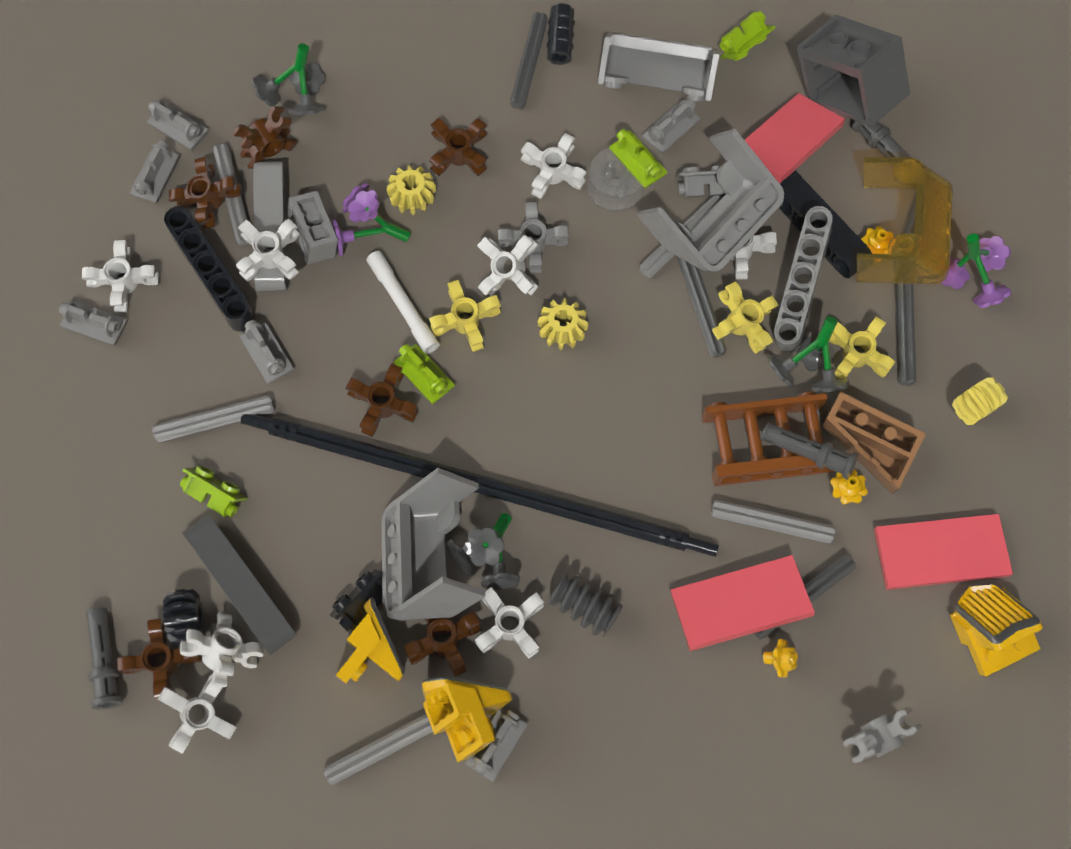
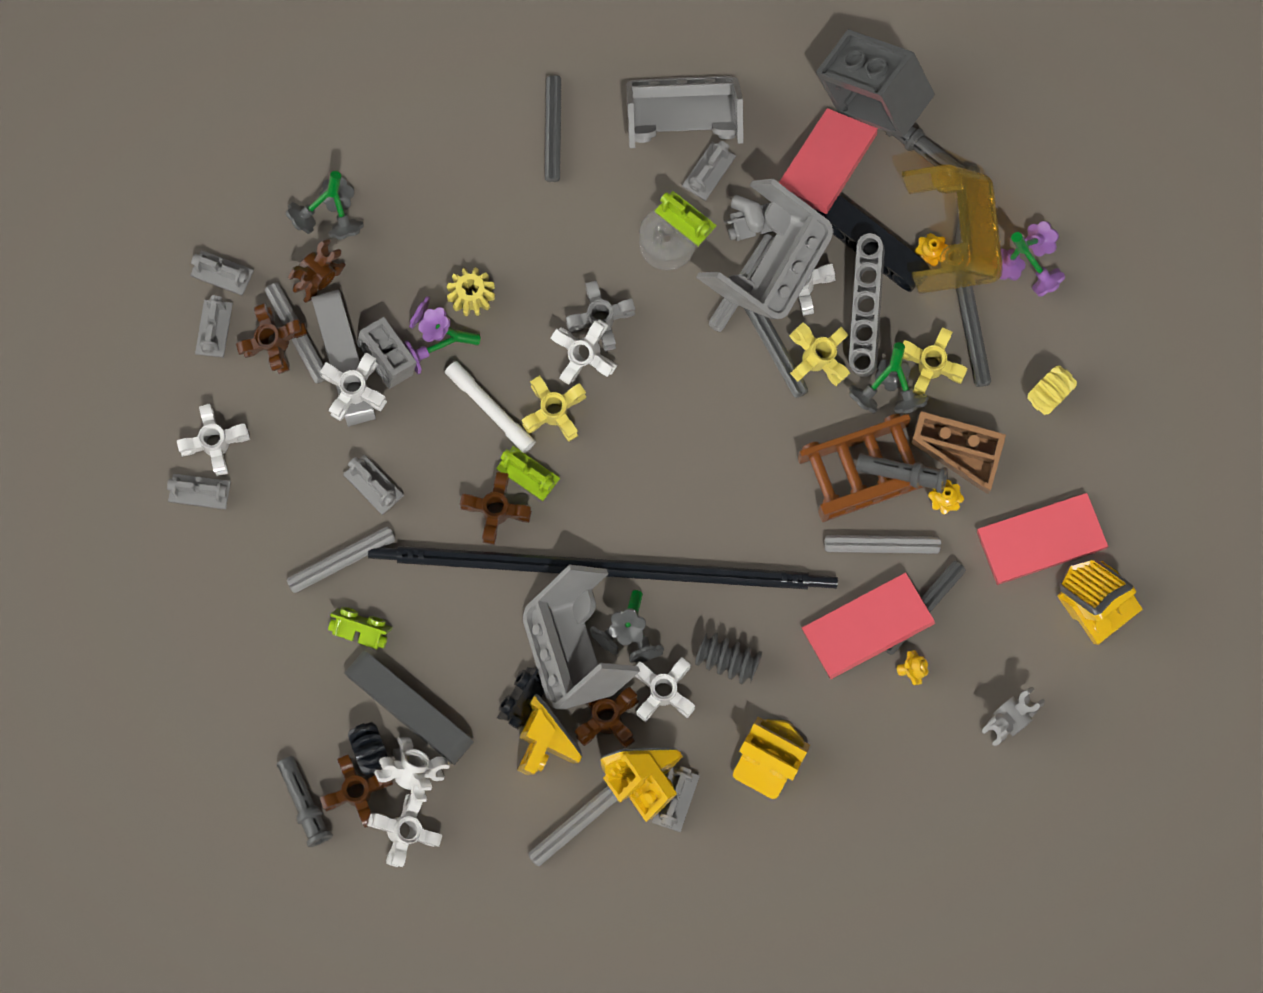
camera: 10 degrees left, 5 degrees up
(204, 257) = (287, 404): black beam -> none
(460, 156) = (512, 227): reddish brown pin -> none
(555, 156) = (583, 232): white pin -> none
(560, 34) = (578, 94): black axle -> none
(564, 313) = (657, 391): light yellow gear -> none
(608, 720) = (770, 756): none -> yellow piece
(705, 167) = (752, 212): none -> light grey arm
(737, 44) = (757, 69): lime hinge -> none

